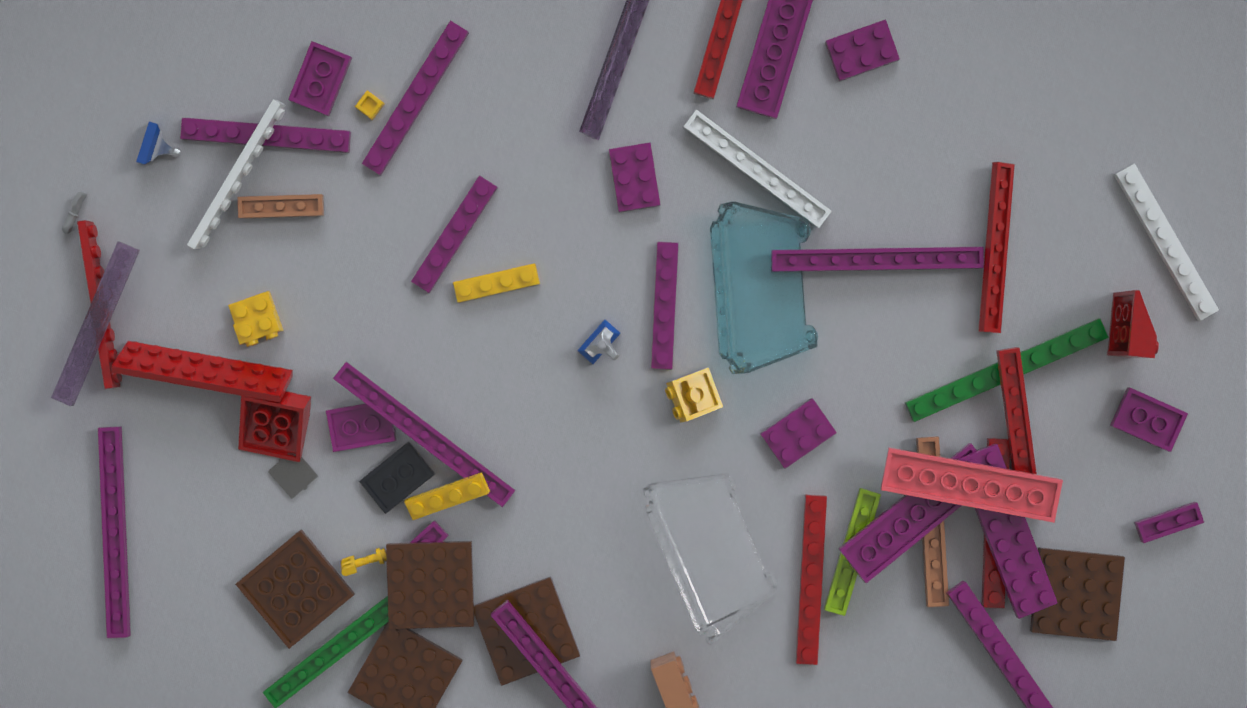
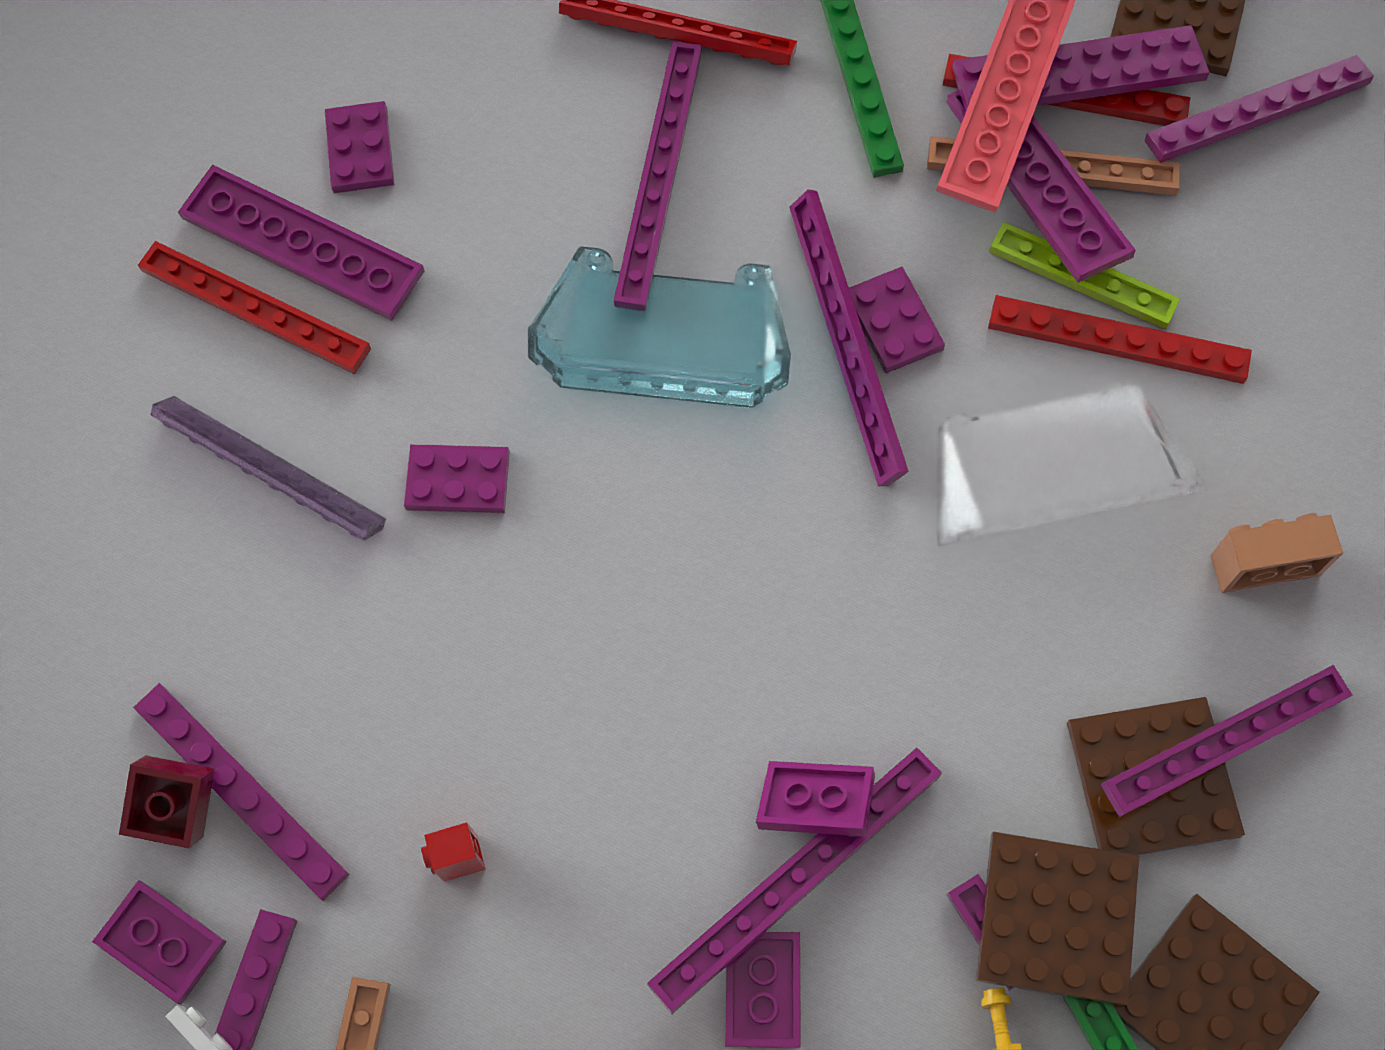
camera: 75 degrees left, 20 degrees down
(369, 105) = (228, 868): yellow tile -> none
(395, 60) = (166, 801): none -> dark red brick
(397, 477) = (864, 946): black tile -> none
(398, 235) = (453, 852): none -> red brick
(447, 496) = (909, 861): yellow plate -> none
(454, 234) = (477, 770): magenta plate -> none
(471, 437) = (816, 798): none -> magenta plate
(496, 283) = (571, 717): yellow plate -> none
(600, 343) = (700, 574): piece -> none
(664, 305) = (663, 470): magenta plate -> none
(693, 395) = (810, 450): yellow plate -> none
(757, 169) = (486, 307): white plate -> none
(779, 404) = (848, 340): none -> magenta plate
(1016, 410) = (907, 34): red plate -> none

